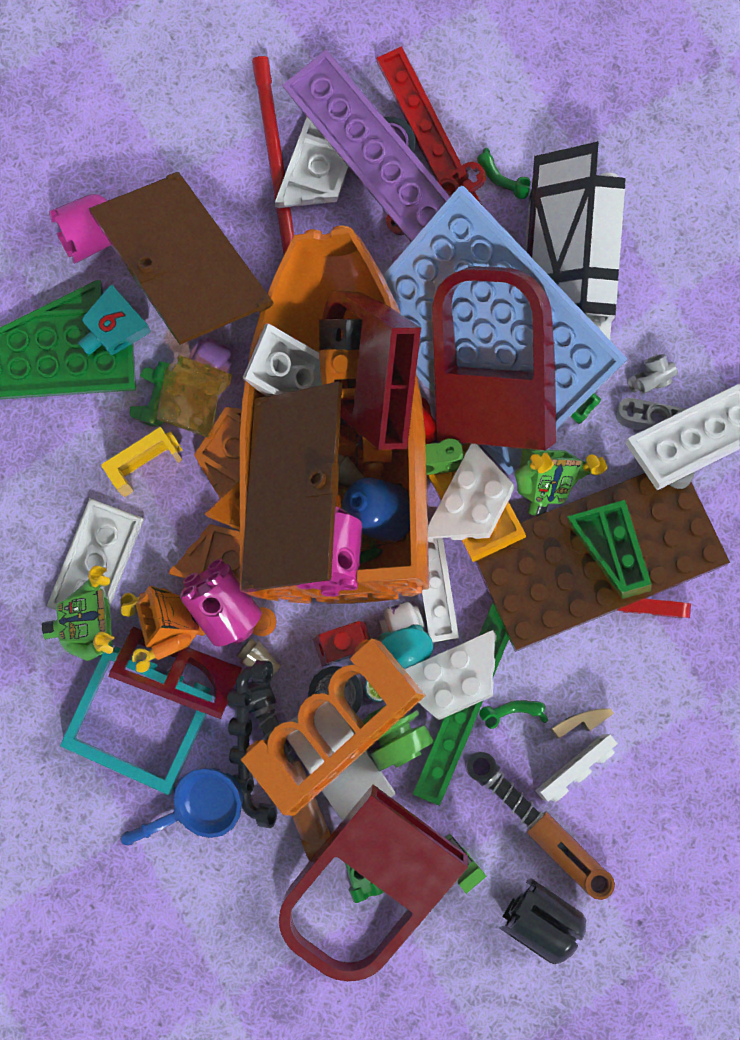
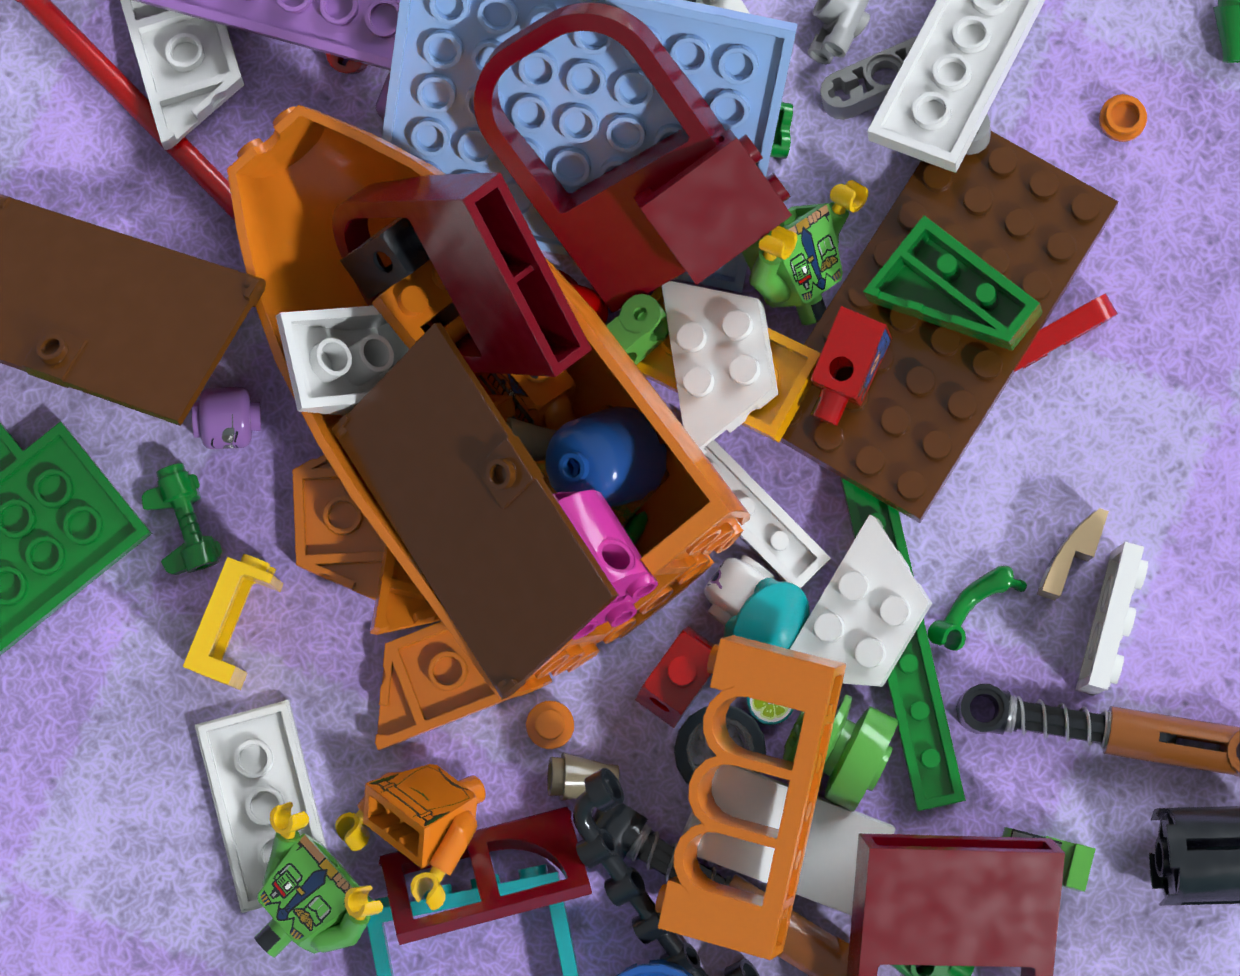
camera: 30 degrees left, 0 degrees up
(112, 324) = (57, 465): teal torso -> none
(191, 395) = (235, 485): clear yellow bracket -> none
(219, 605) = (480, 740): dark pink cylinder -> none
(523, 422) = (716, 207): none -> dark red panel
(546, 541) = (852, 343): none -> red torso

